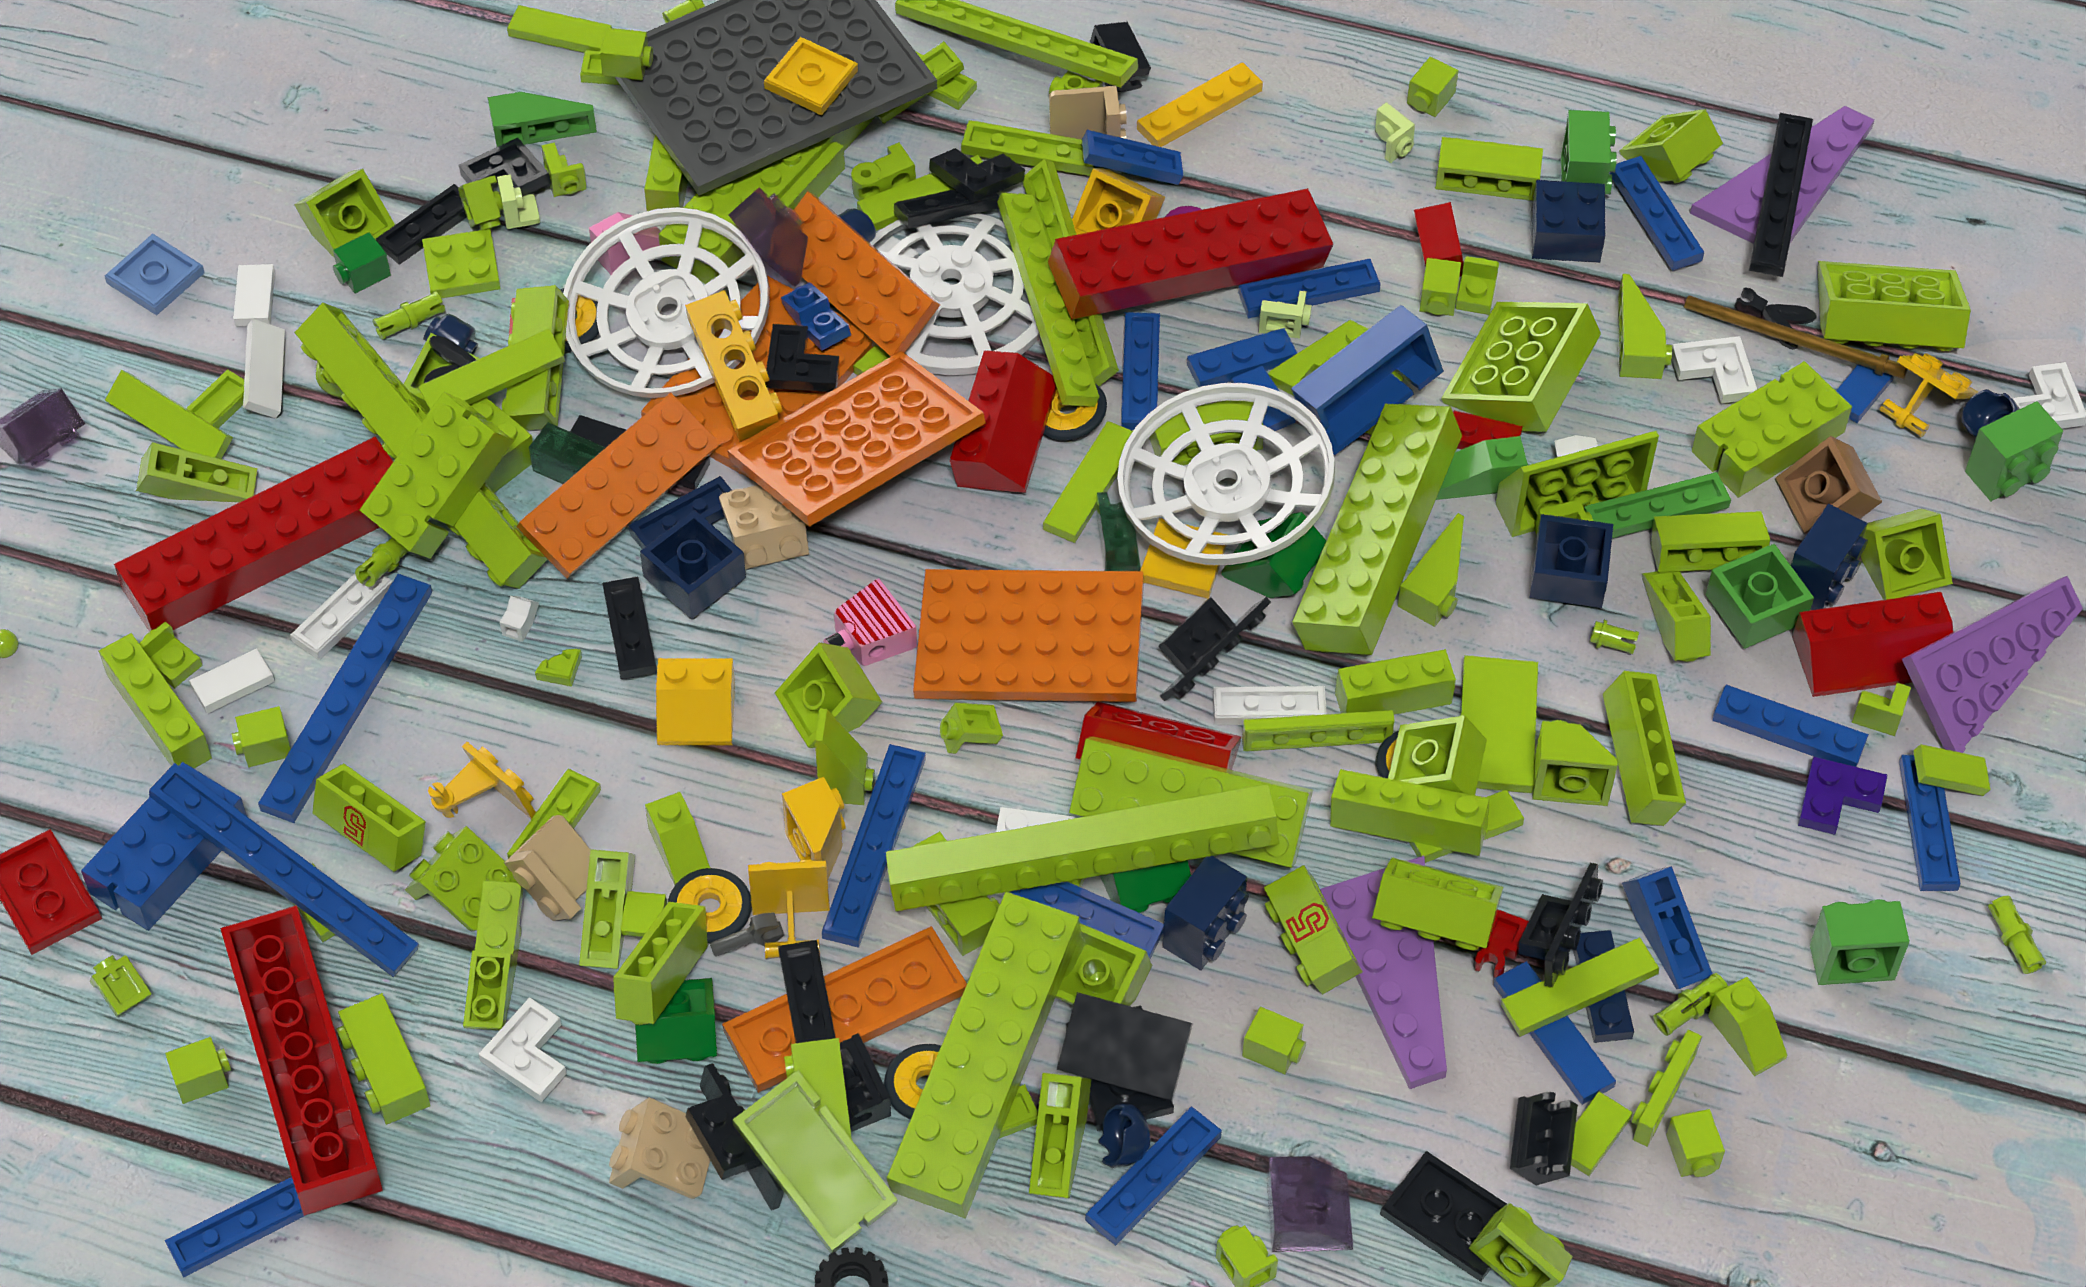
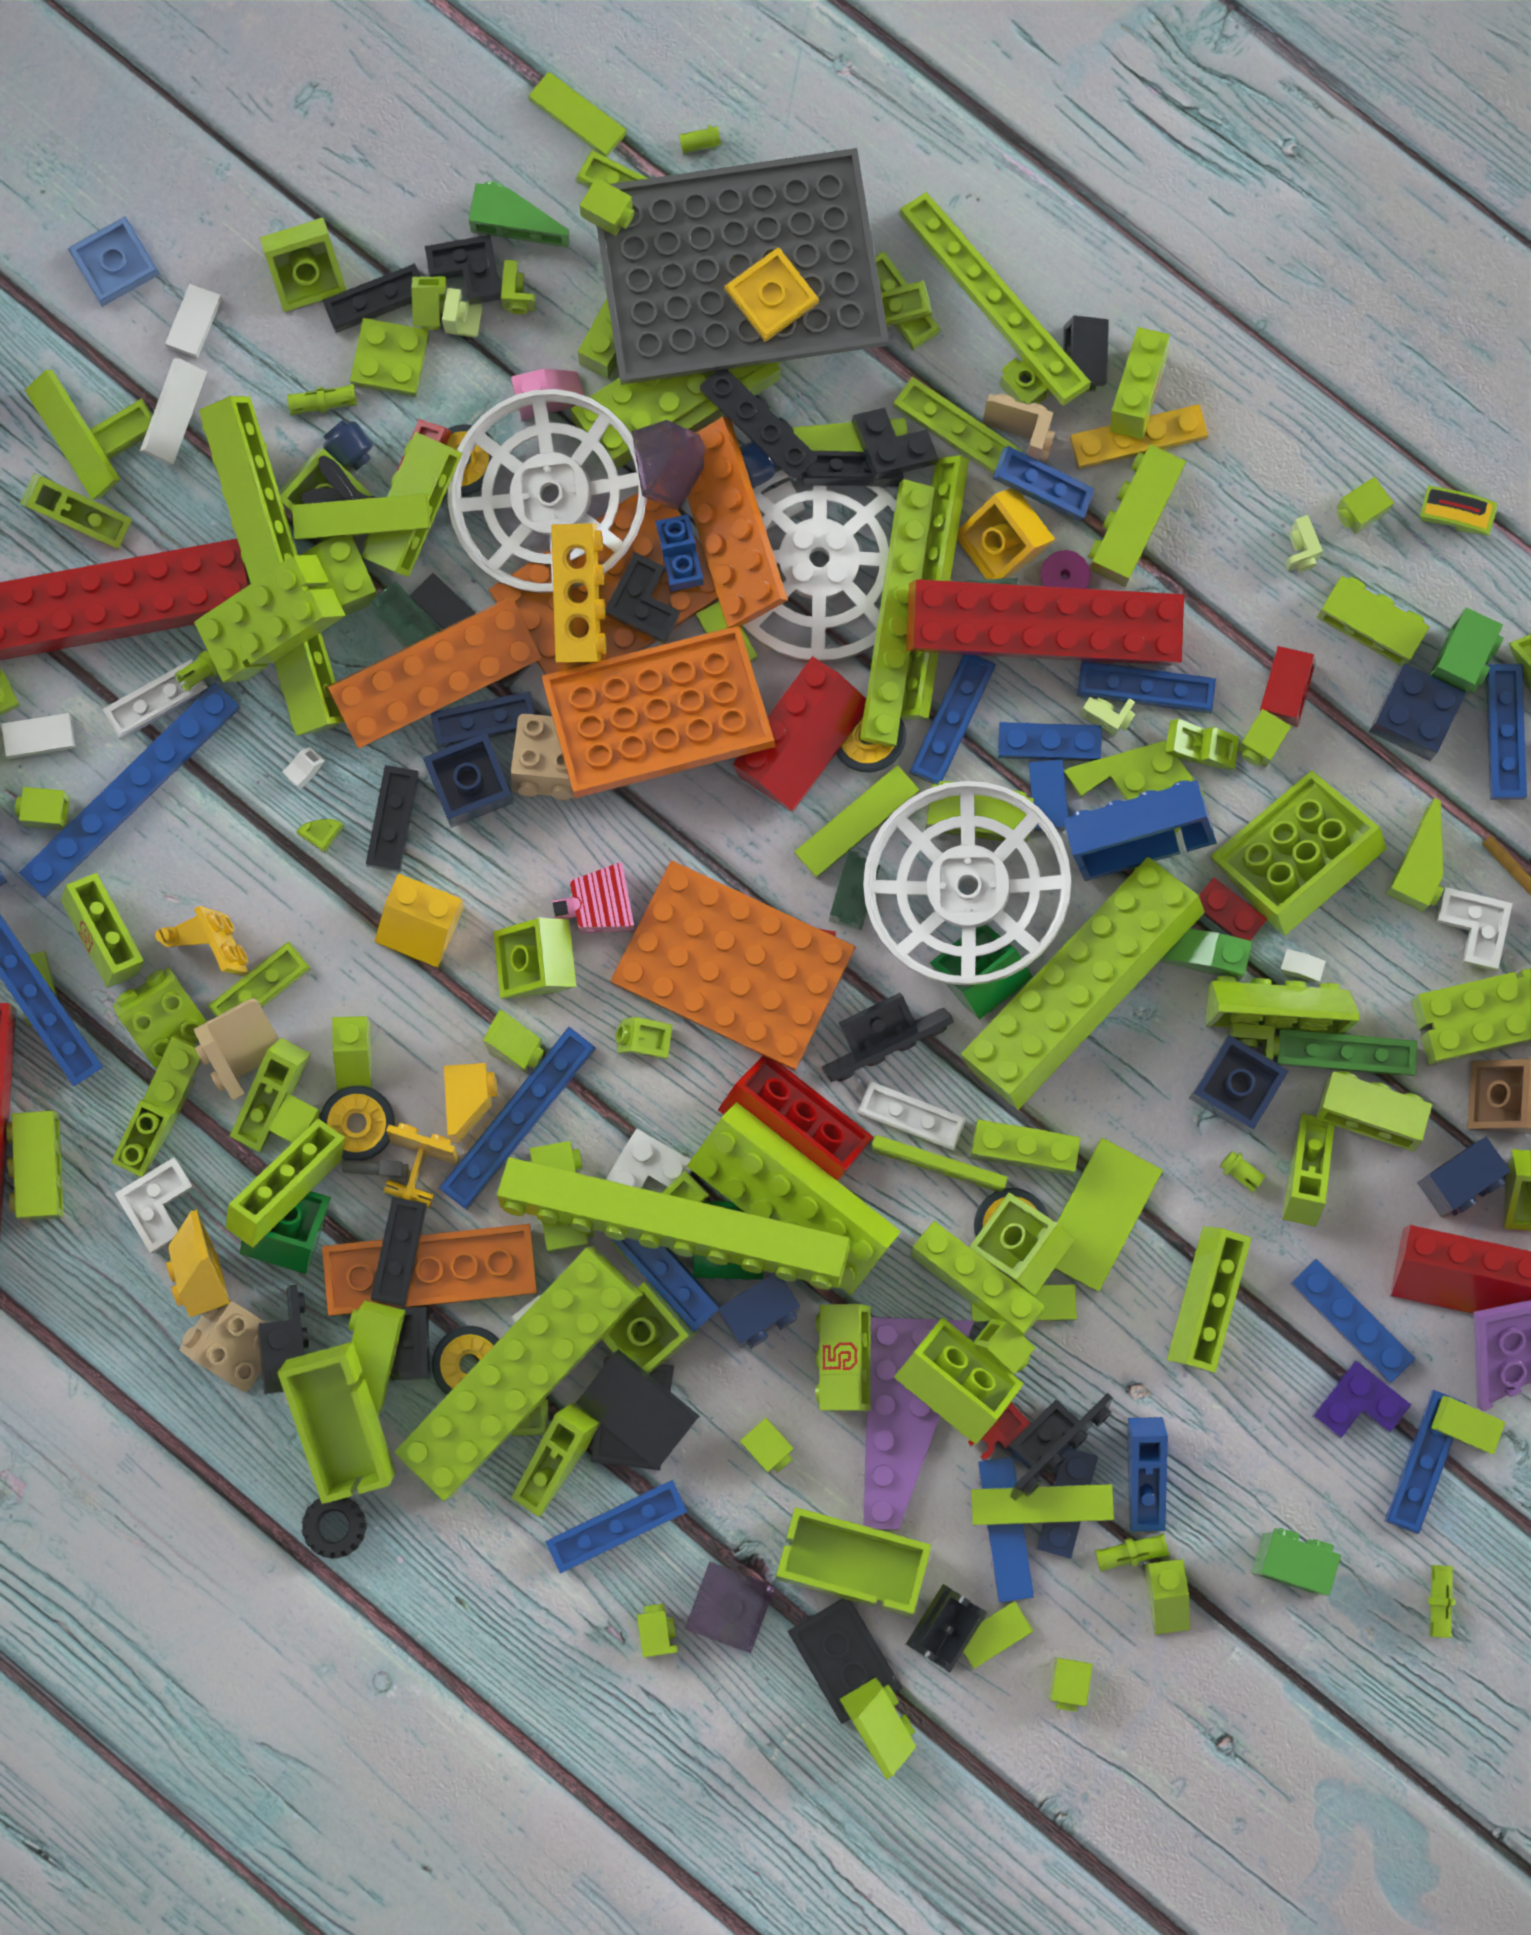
camera: 20 degrees right, 25 degrees up
(361, 263) = (297, 326): green brick -> none
(598, 1077) = (196, 1268): none -> yellow slope
(844, 186) = (758, 423): none -> black bracket
(882, 173) = (809, 408): lime leg -> none
(1124, 1136) = (607, 1487): dark blue hair -> none
(1176, 573) = (898, 931): yellow tile -> none
(1181, 55) = (1140, 383): none -> lime brick
(1229, 150) = (1137, 515): none -> lime brick
(1368, 310) = (1201, 745): none -> lime slope
(1417, 1108) = (853, 1562): none -> lime piece
(1433, 582) = (1111, 1052): lime slope -> none
(1468, 857) = (1005, 1345): none -> lime brick
(1477, 285) = (1299, 748): lime bracket -> none
(1527, 64) = (1458, 509): none -> slope
(1572, 766) = (1134, 1292): lime slope -> none
(1665, 1086) = (1071, 1620): lime plate -> none
(1758, 595) = (1387, 1187): bright green brick -> none
(1882, 712) = (1440, 1337): lime panel -> none

